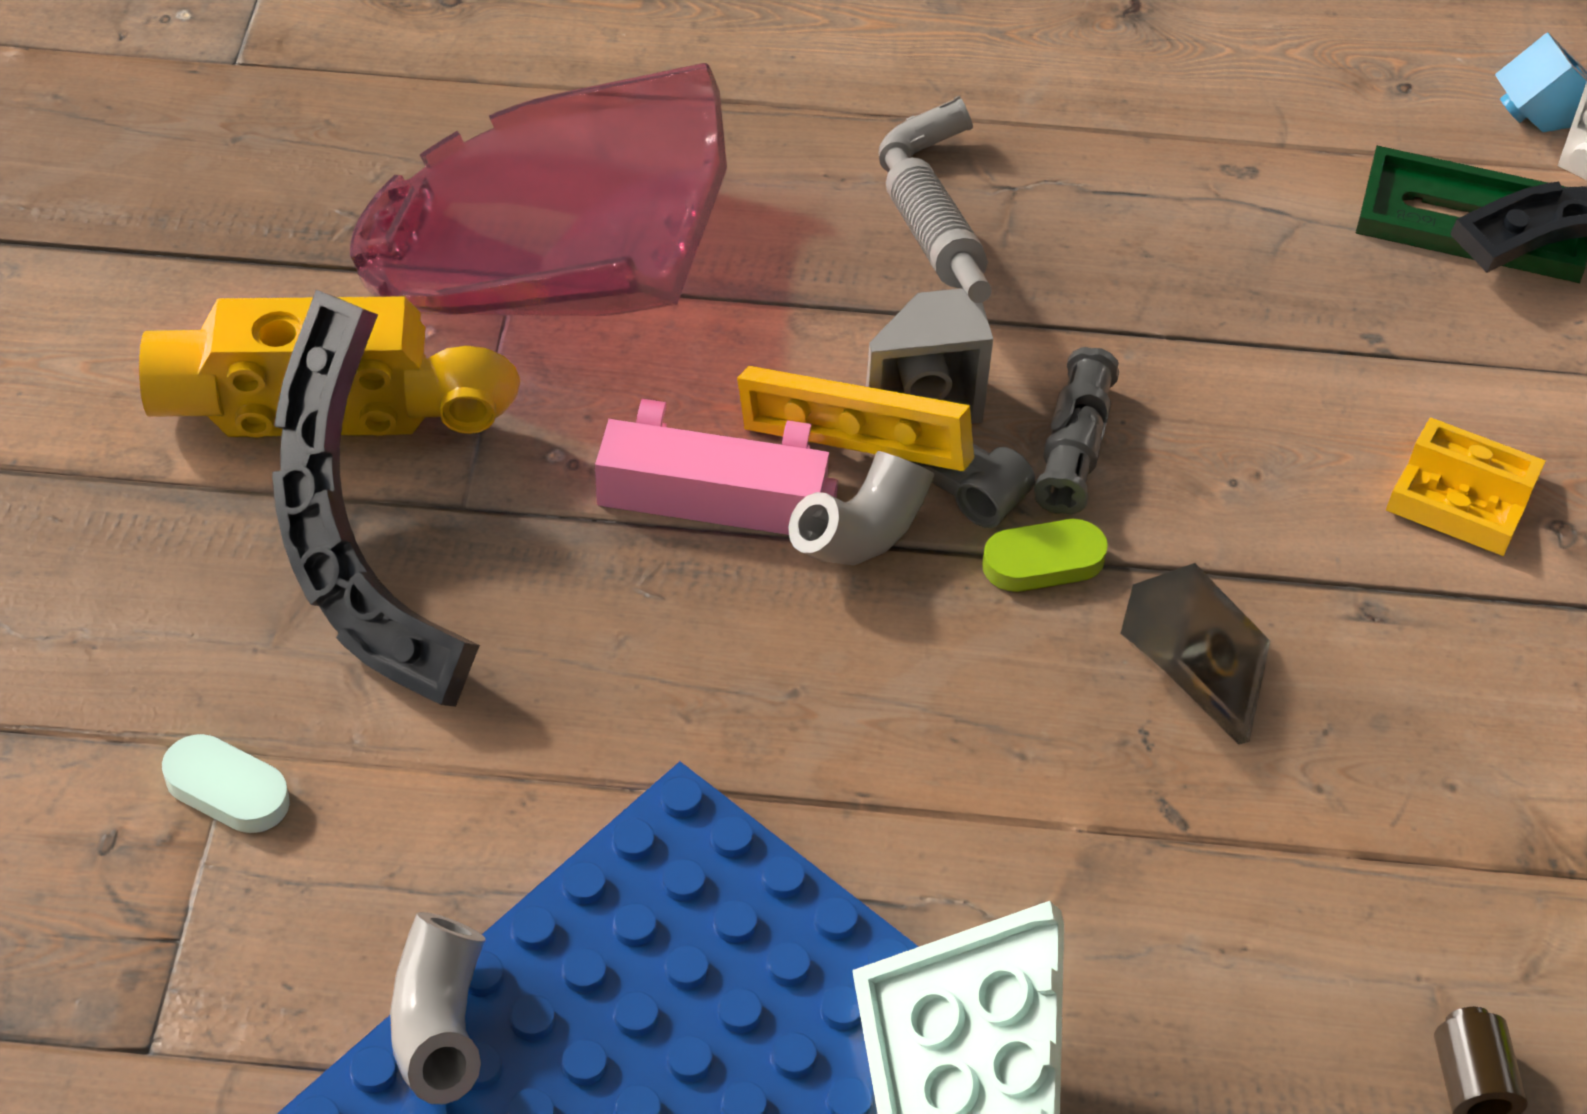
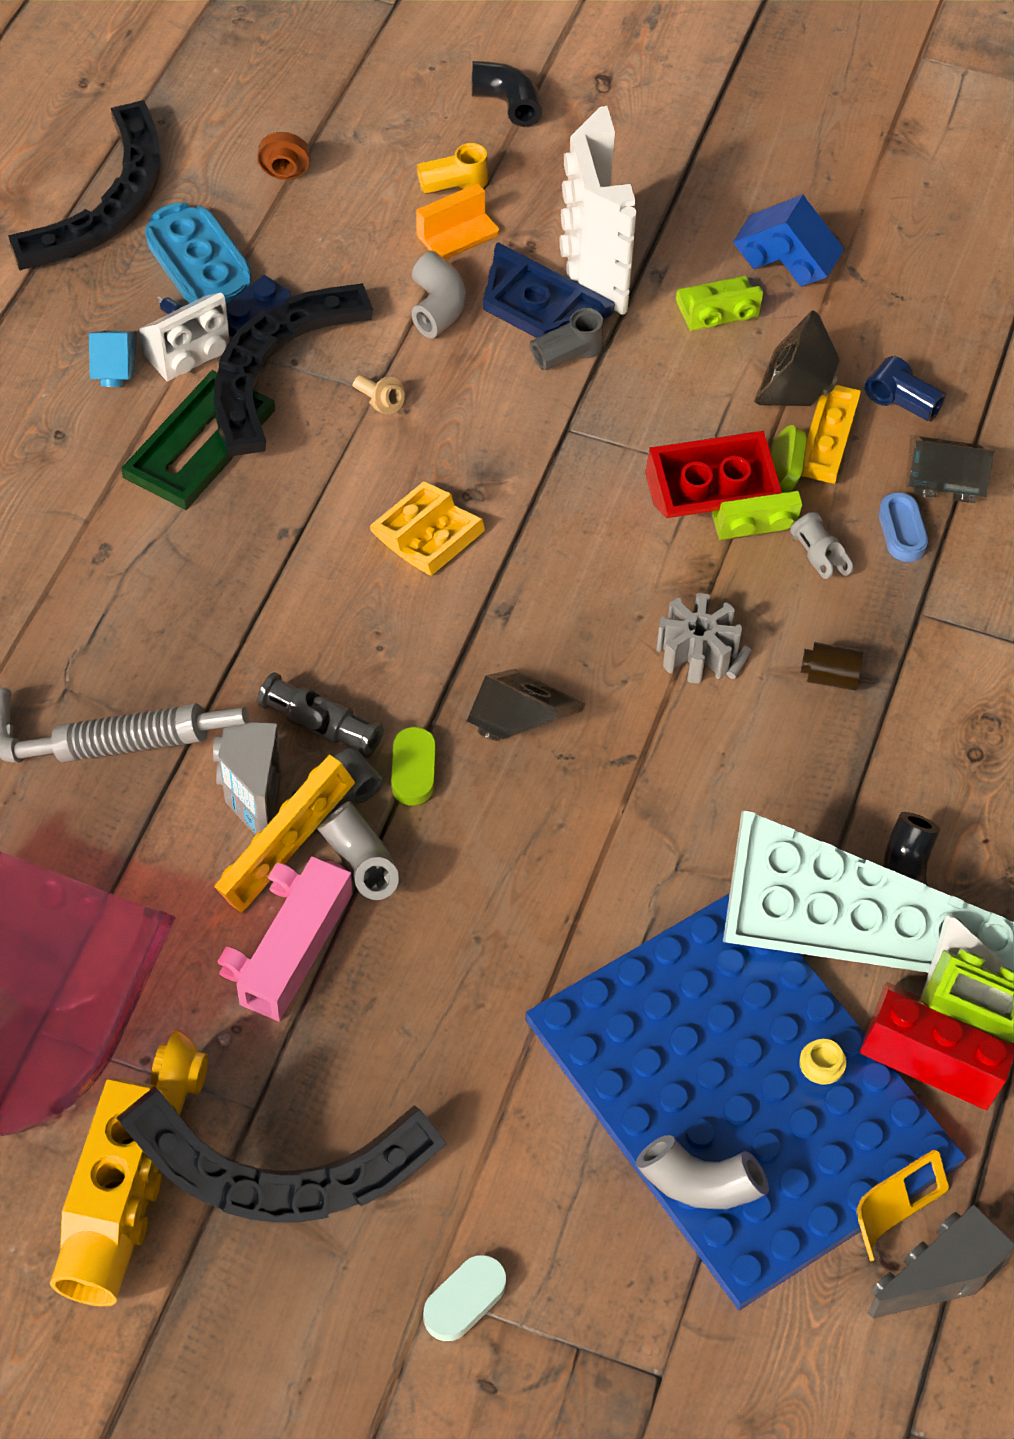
camera: 75 degrees left, 5 degrees up
(1430, 936) = (739, 662): none -> light grey piece
(1436, 858) = (698, 638): none -> light grey gear

